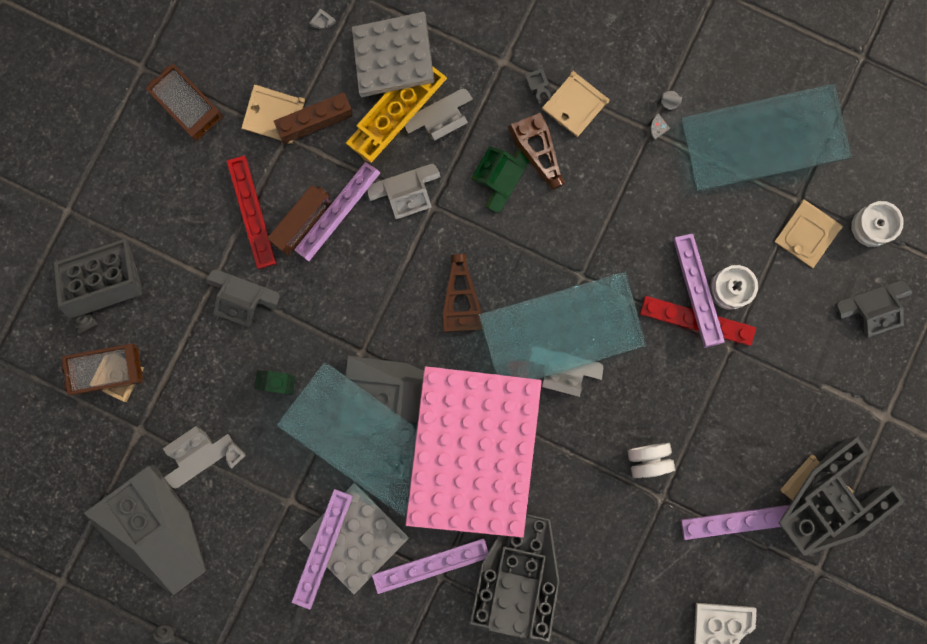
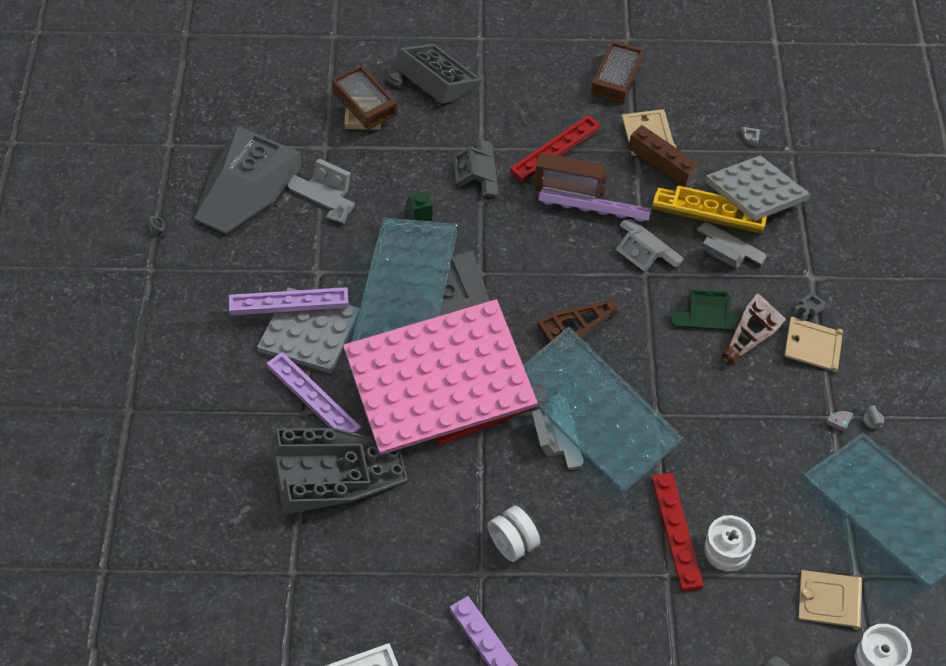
camera: 65 degrees right, 30 degrees down
(698, 290) = (705, 512): lavender plate -> none

